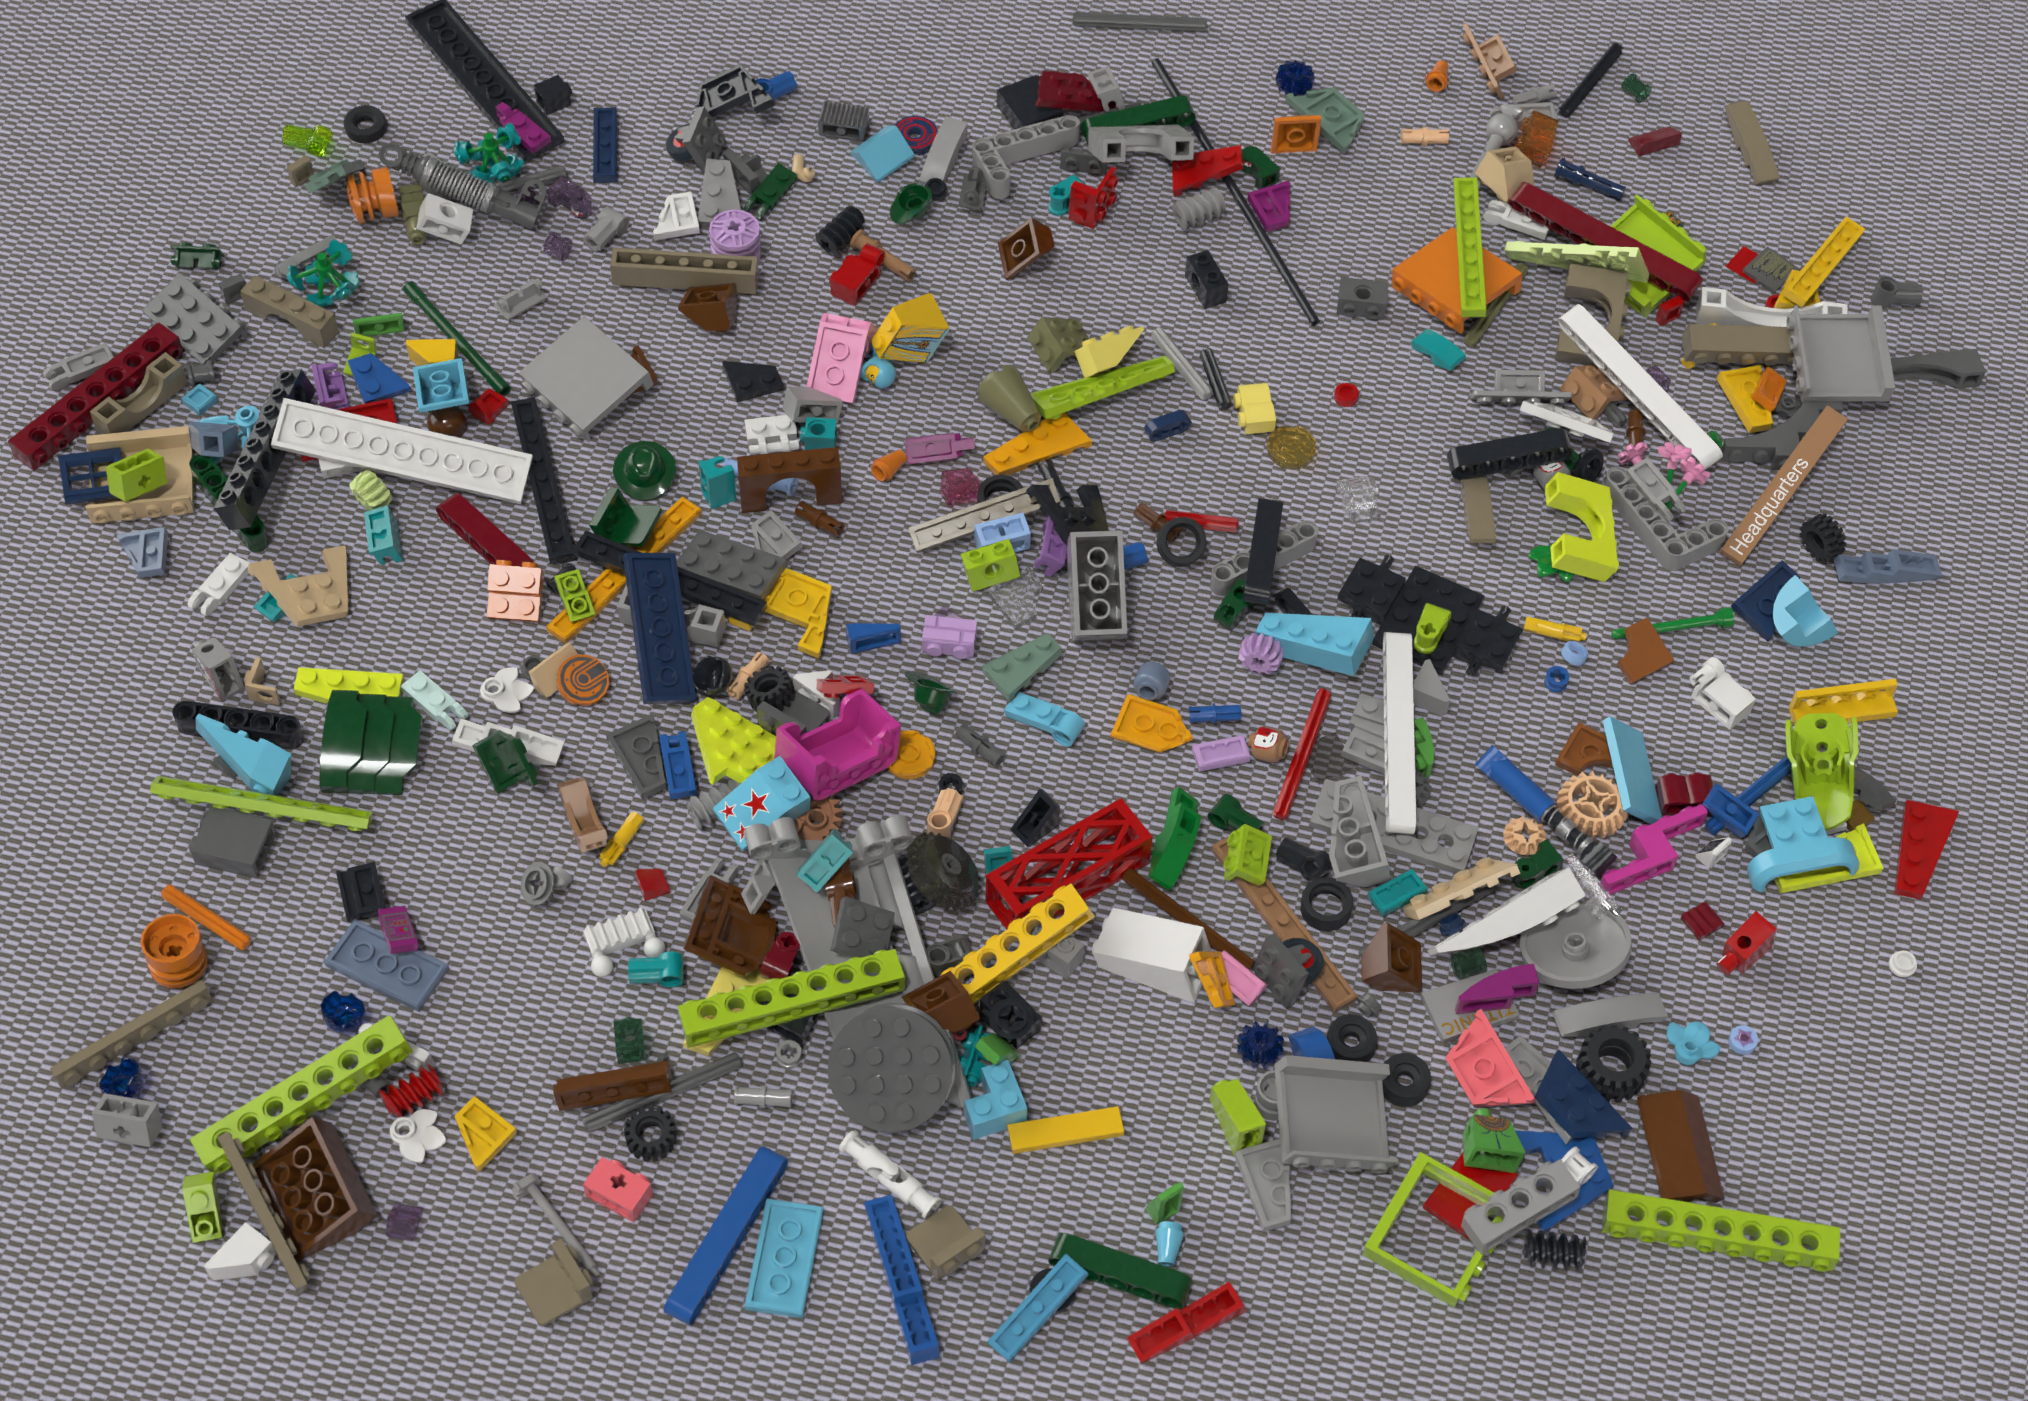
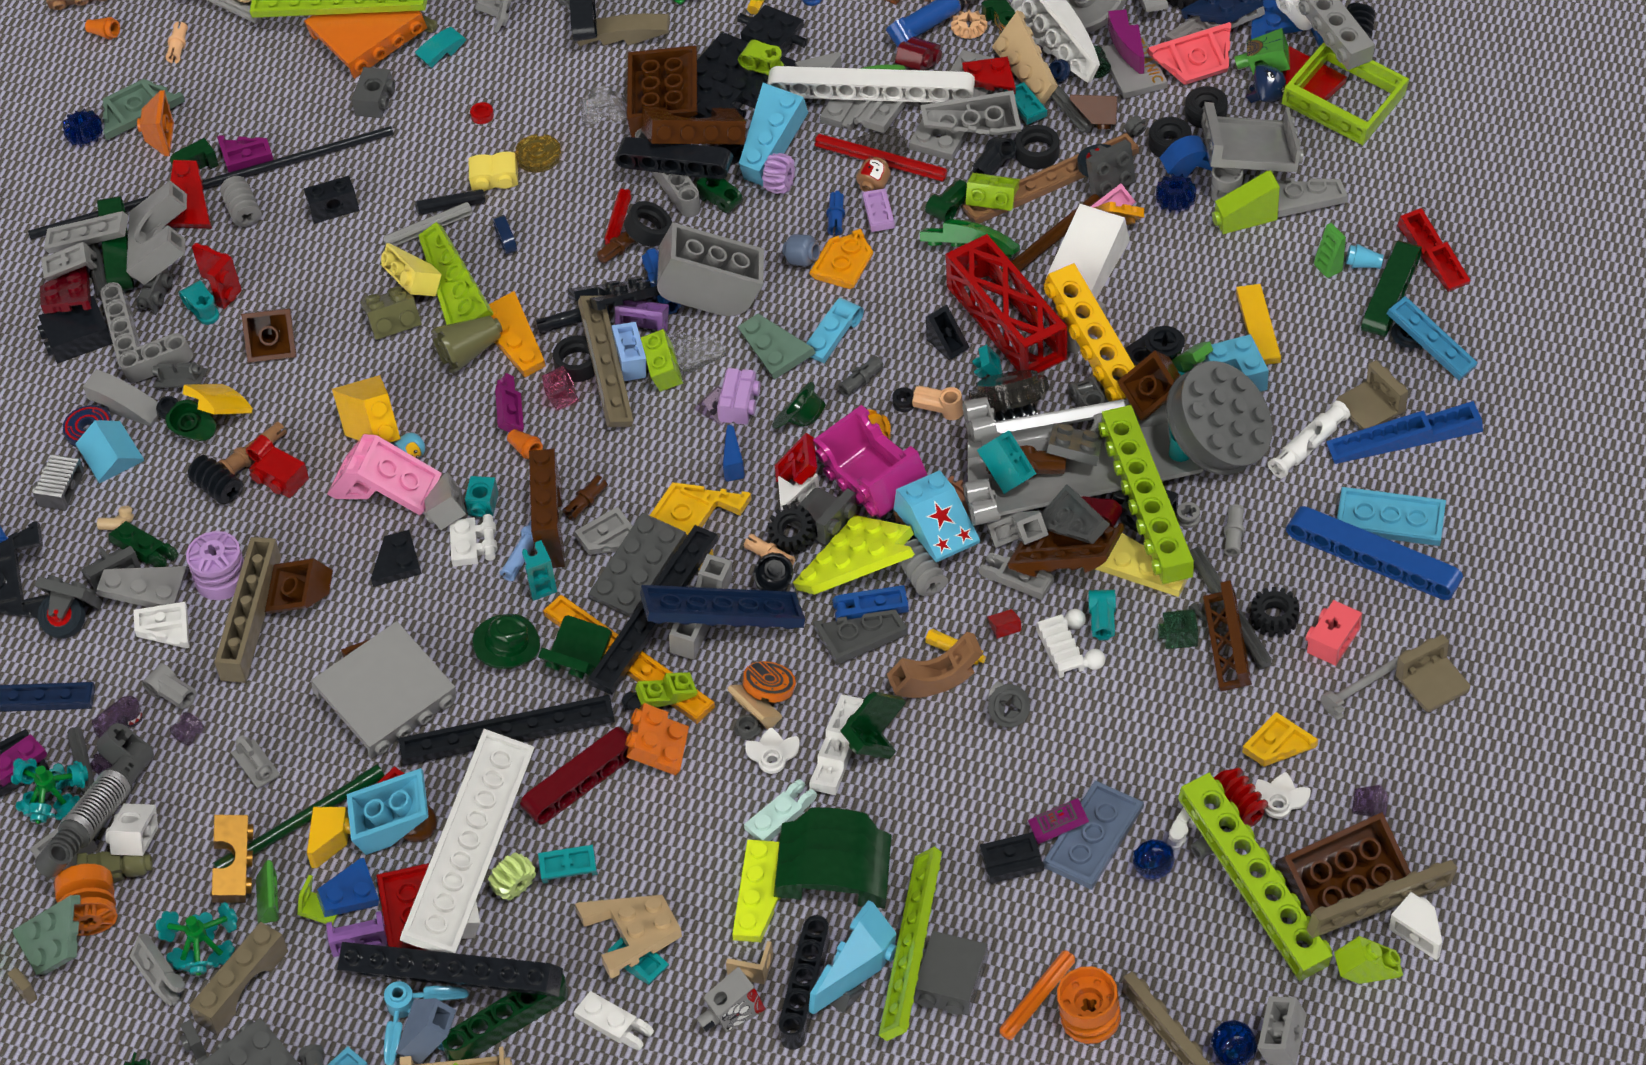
camera: 80 degrees left, 5 degrees down
(424, 286) = (232, 883): none -> arch
(758, 928) = (1073, 517): none -> dark grey wing
(936, 218) = (217, 398): none -> yellow slope
(1143, 94) = (86, 231): none -> light grey plate
(1301, 589) = (723, 127): none -> reddish brown arch
(1376, 535) = (661, 80): none -> reddish brown slope
(1430, 851) = (991, 73): none -> red wing
(1439, 1141) = (1267, 85): none -> dark blue piece
(1457, 778) = (918, 54): none -> dark red brick

